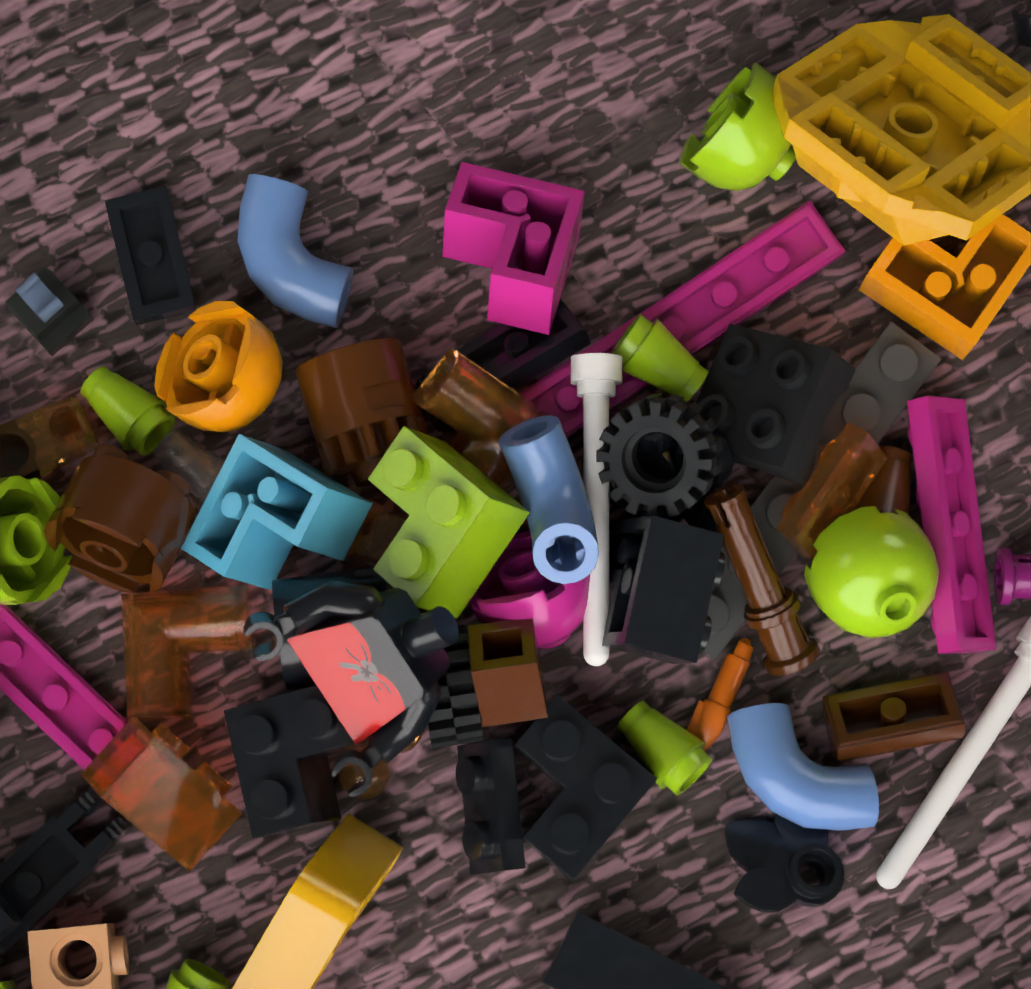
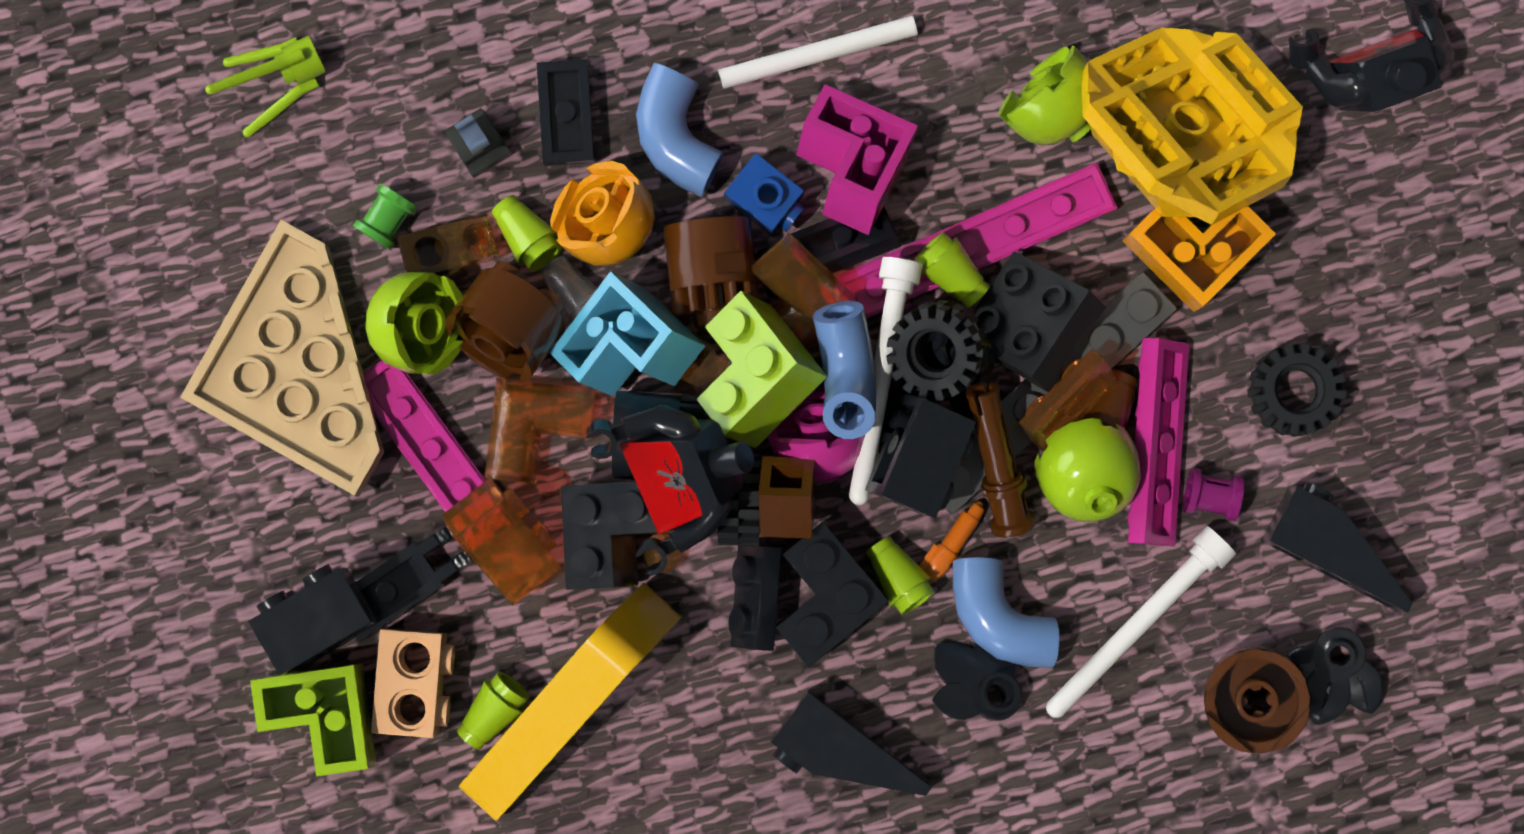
camera: 15 degrees right, 5 degrees up
(414, 311) = (765, 196): none -> blue brick
(446, 129) = (817, 52): none -> white bar
(892, 717) = (1083, 585): reddish brown brick -> none

